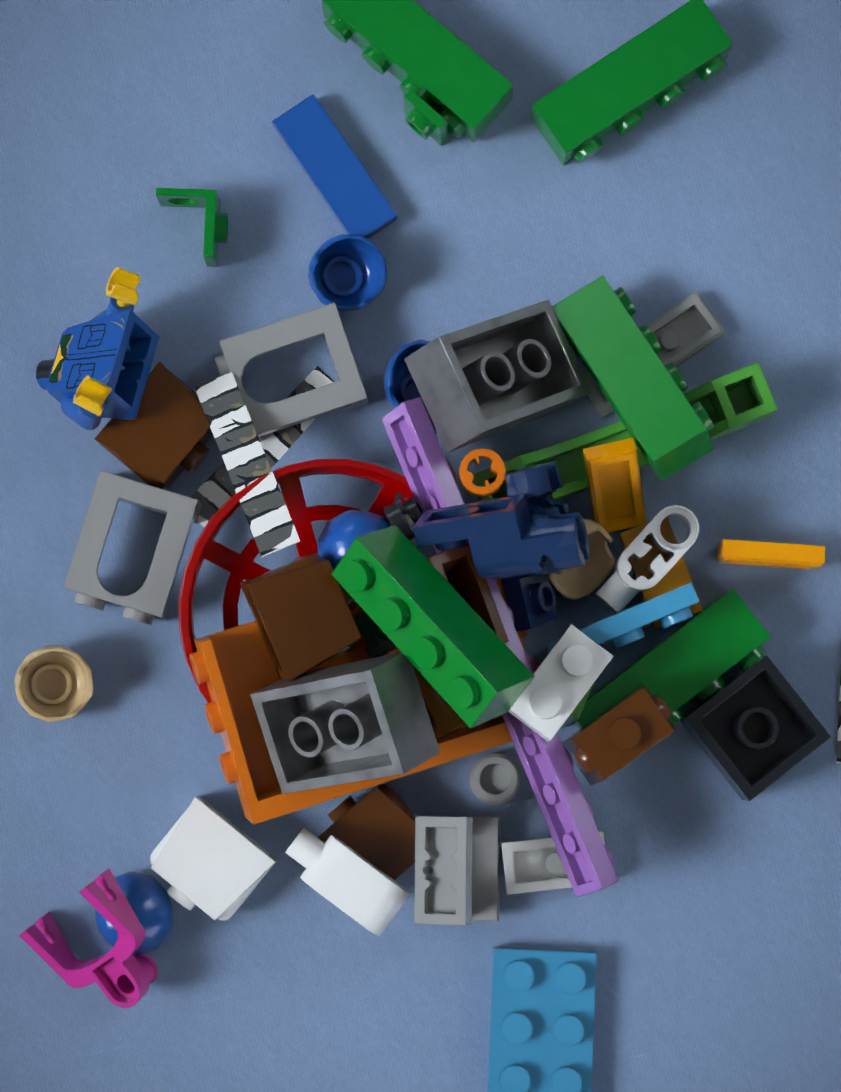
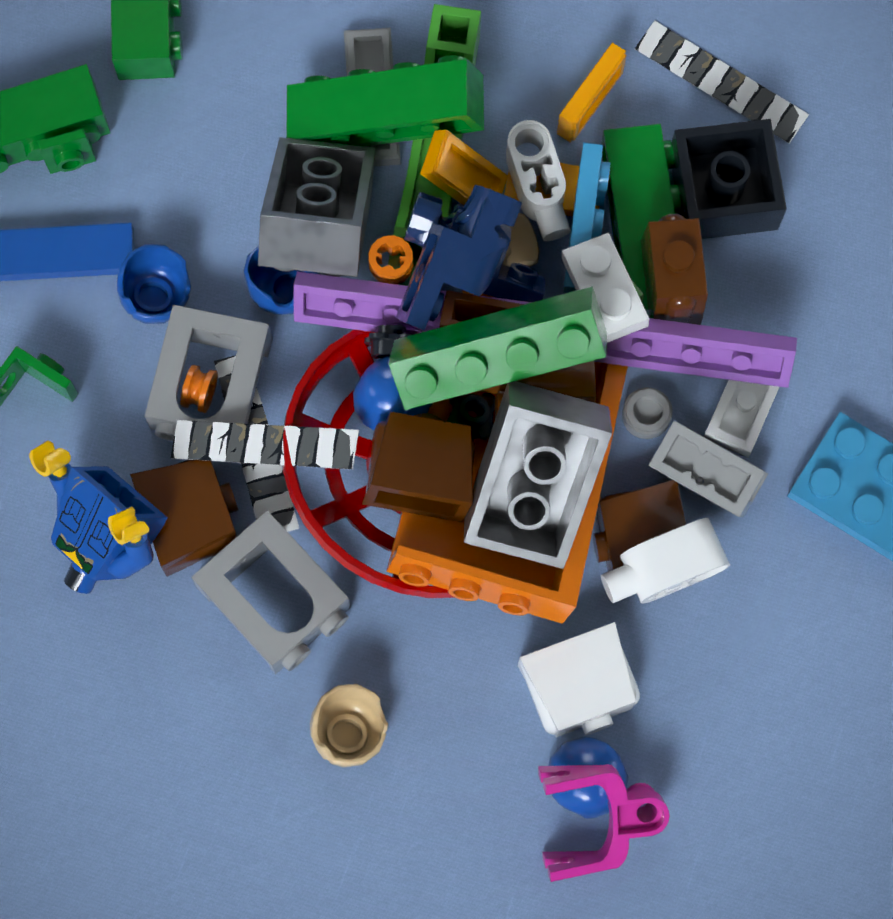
camera: 60 degrees left, 10 degrees down
(279, 370) = (198, 388): none -> orange bush

